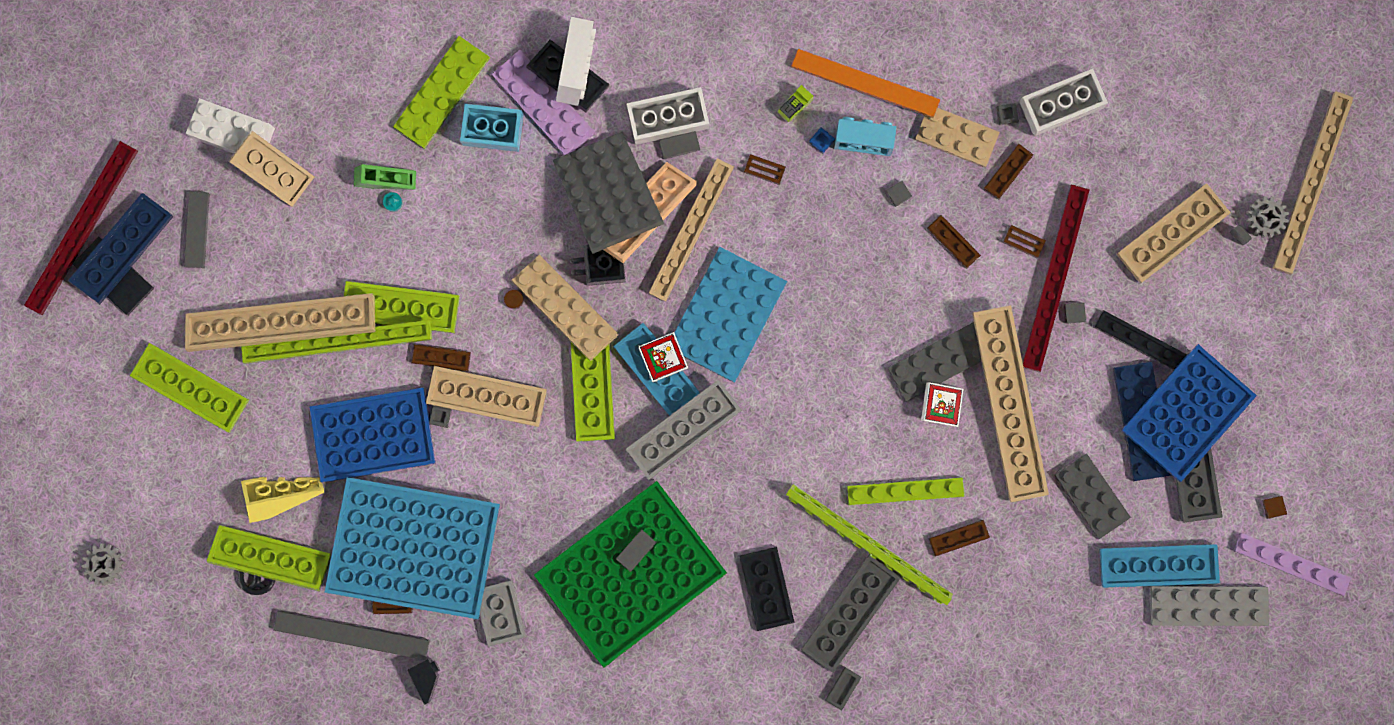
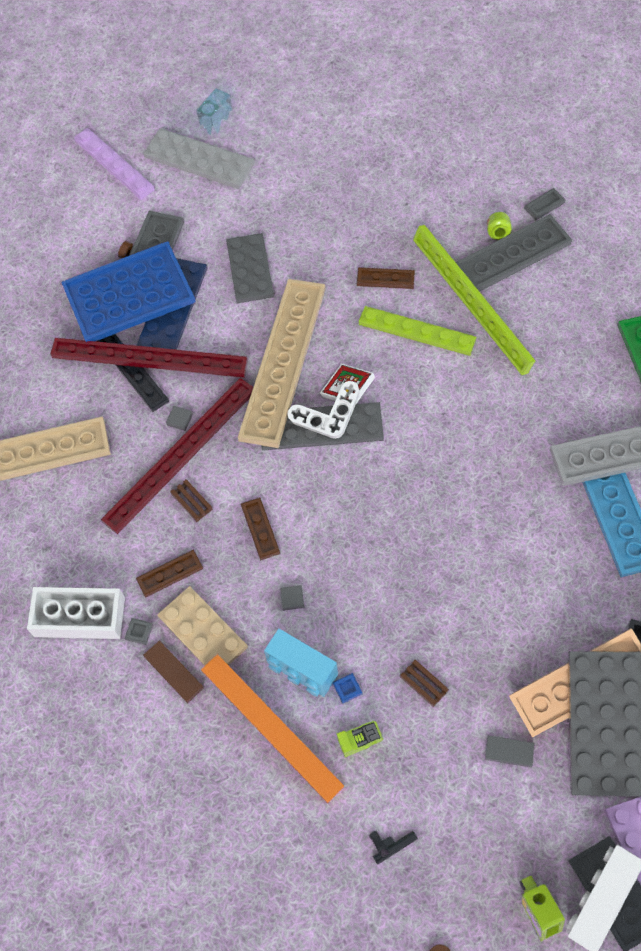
camera: 155 degrees left, 20 degrees down
(611, 33) = (545, 917): none -> lime torso
(663, 357) = (613, 529): tile -> none
(668, 116) = (513, 785): white brick -> none
(691, 230) = (531, 651): tan plate -> none
(728, 314) = (526, 552): dark azure plate -> none
(740, 40) = (389, 845): none -> black hose
(767, 589) = (583, 300): black tile -> none
(876, 638) = (498, 225): none -> lime head
(942, 356) = (328, 420): none -> white beam
(963, 94) = (173, 671): none -> reddish brown tile
(1132, 355) = (149, 357): none -> dark red plate
(1159, 566) = (223, 197): dark azure plate -> none
(1213, 668) = (211, 113): none -> clear light blue piece
(1220, 463) = (125, 249): none -> reddish brown tile
(1274, 507) = (101, 206): reddish brown tile -> none

